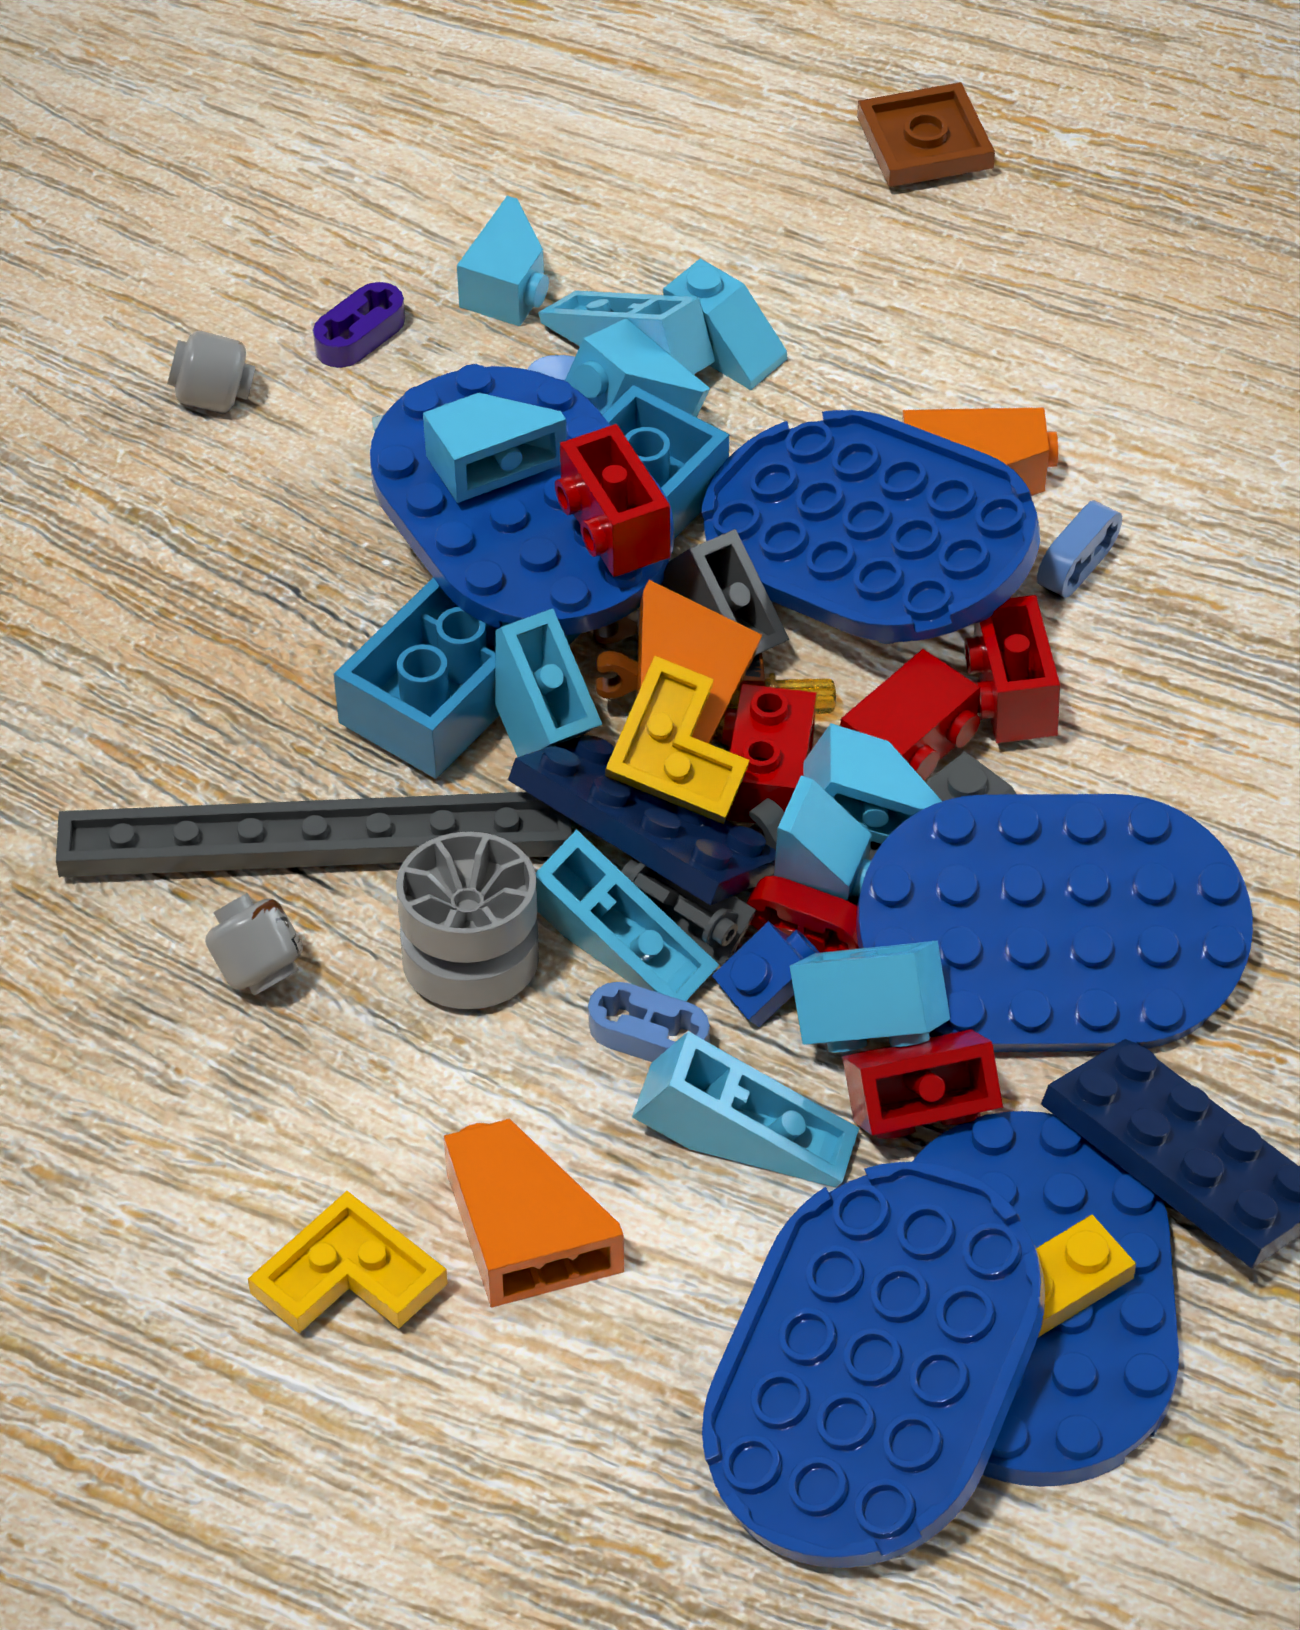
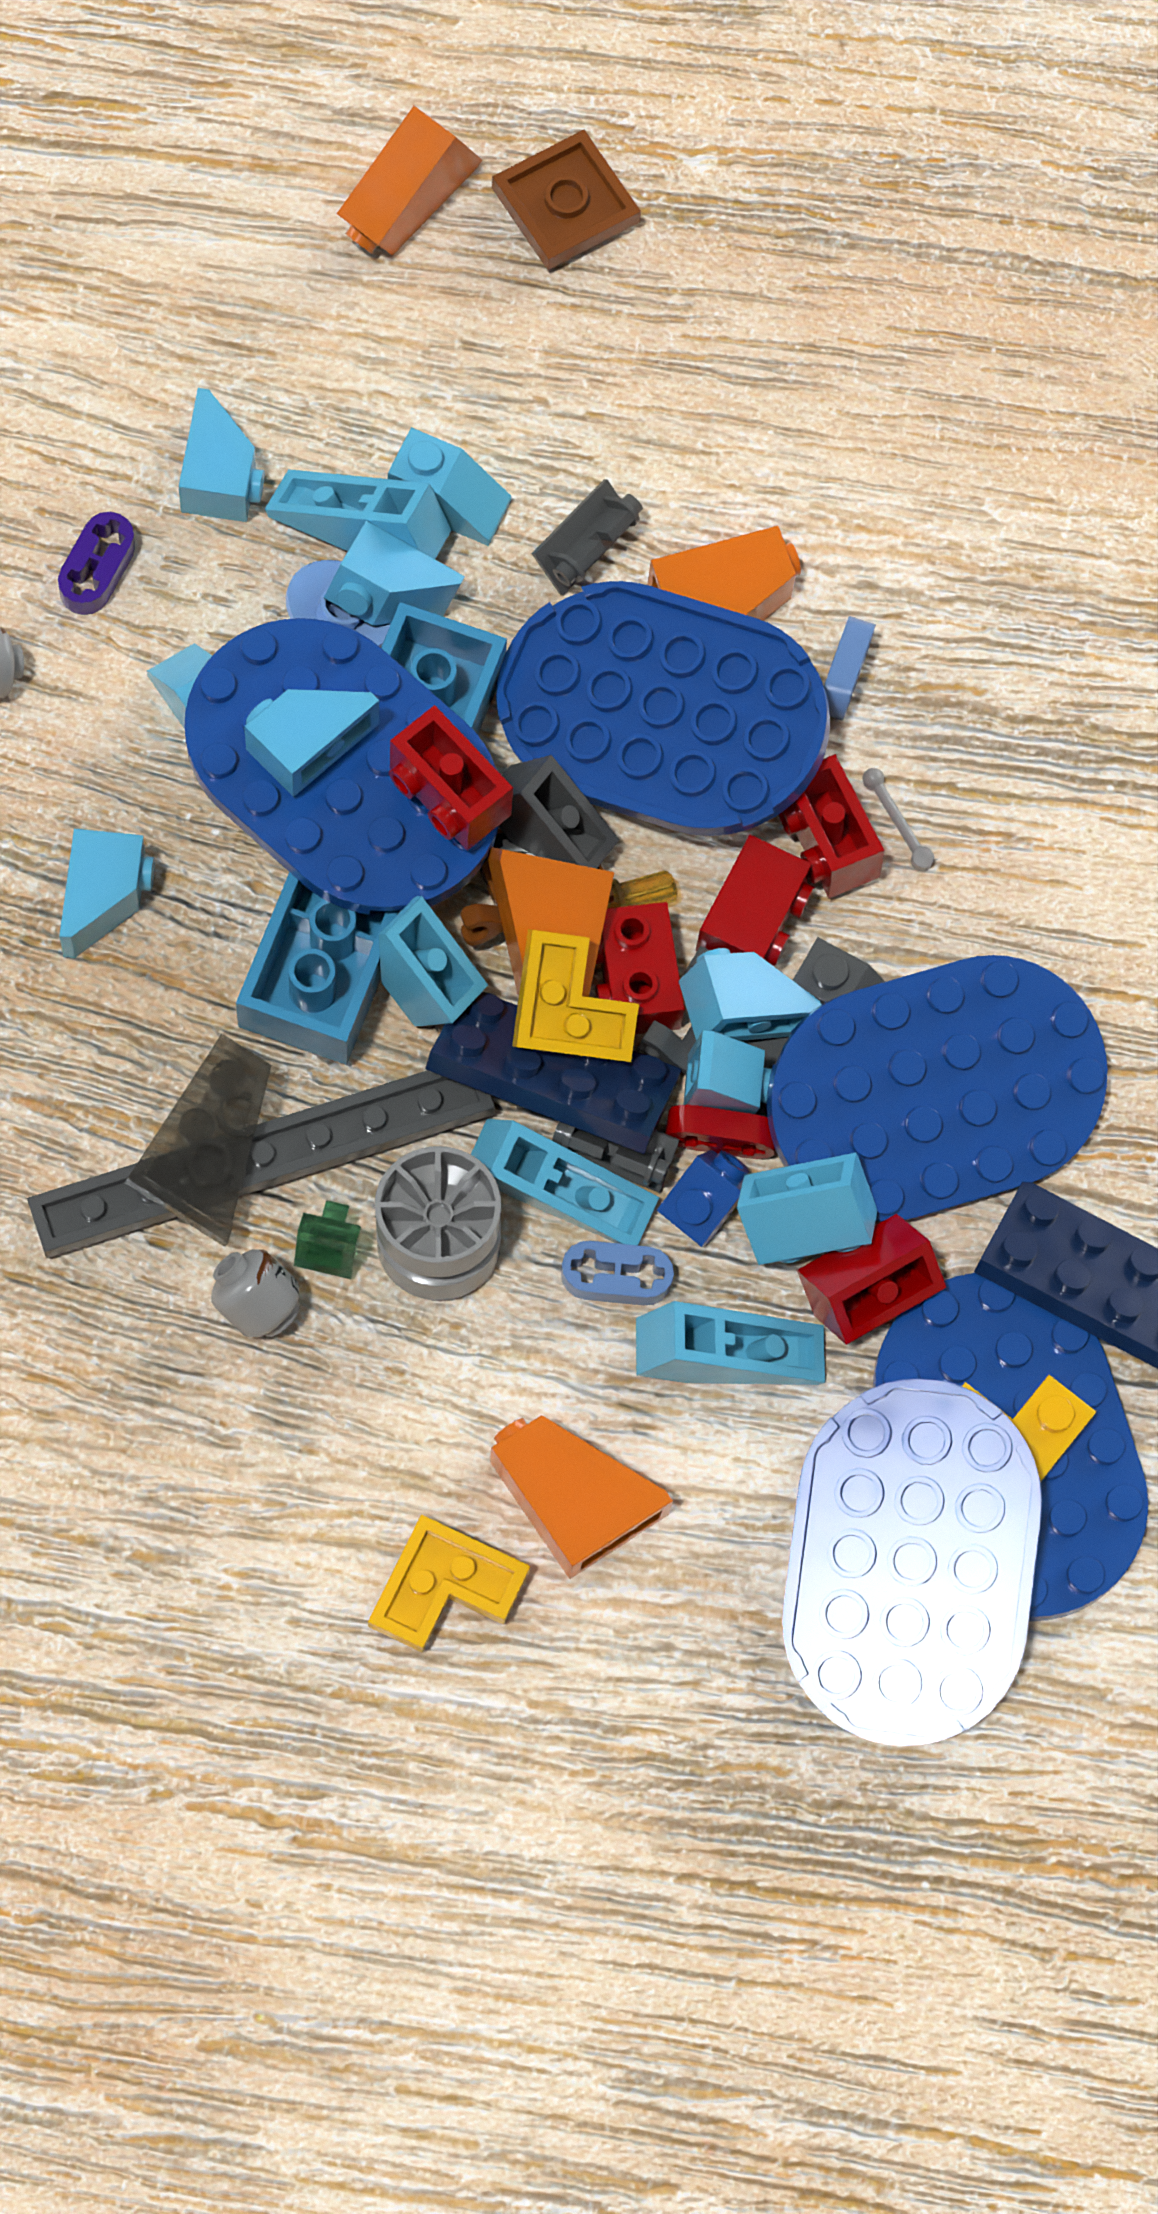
camera: 25 degrees left, 20 degrees up
(248, 573) = (102, 886): none -> medium azure slope
(256, 793) = (205, 1142): none -> clear smoke wing
(349, 921) = (328, 1242): none -> clear green tile
(775, 87) = (406, 183): none -> orange slope
(857, 384) = (586, 535): none -> dark grey hinge
(1109, 731) = (922, 857): none -> light grey hinge

